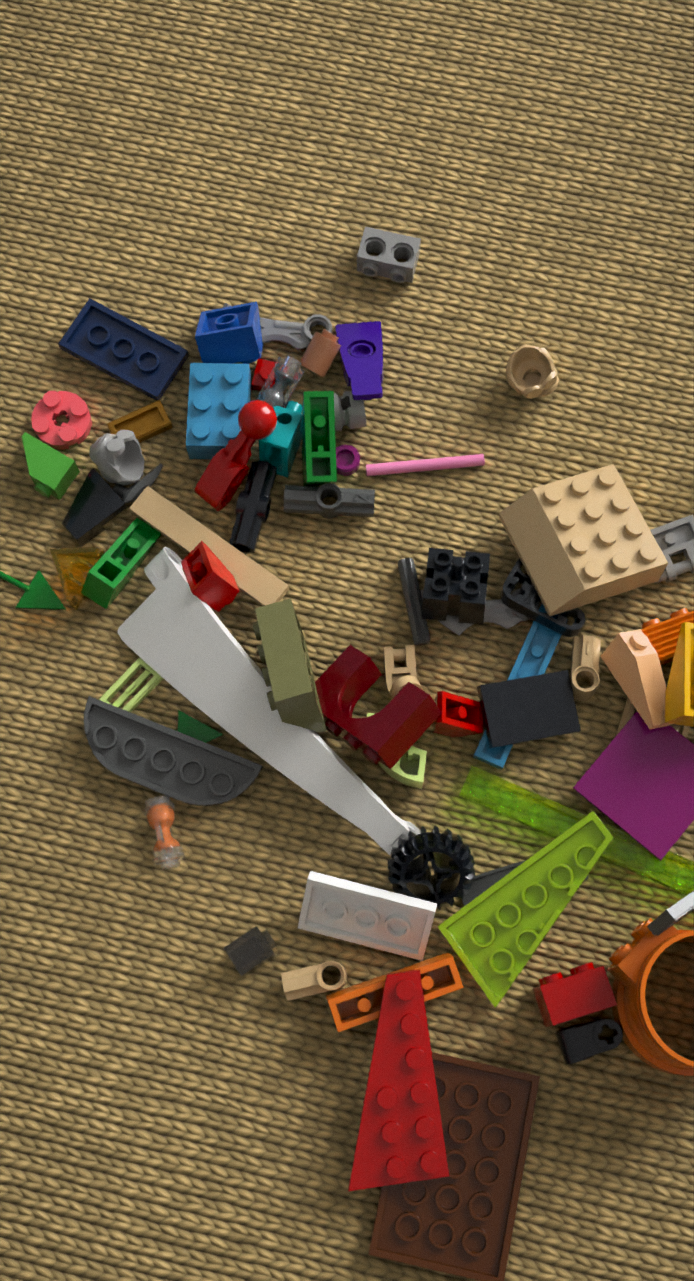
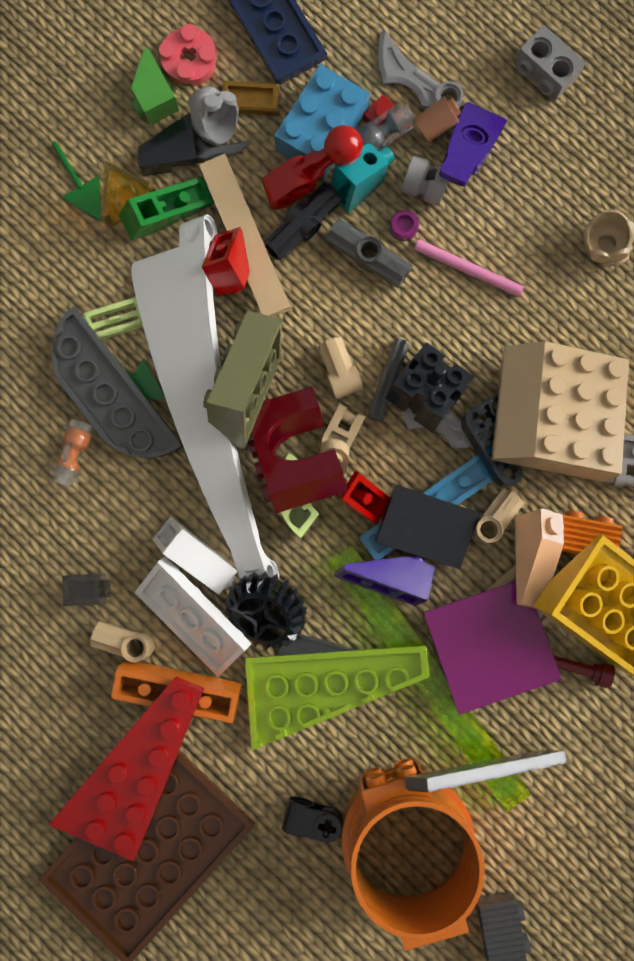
camera: 30 degrees right, 10 degrees up
(230, 334) = (370, 59): blue slope -> none
(318, 439) = (390, 192): green slope -> none
(334, 858) = (195, 556): none -> white slope
(371, 620) = (341, 374): none -> tan piece
(531, 769) = (399, 578): none -> dark purple slope
(575, 995) = (319, 782): red brick -> none

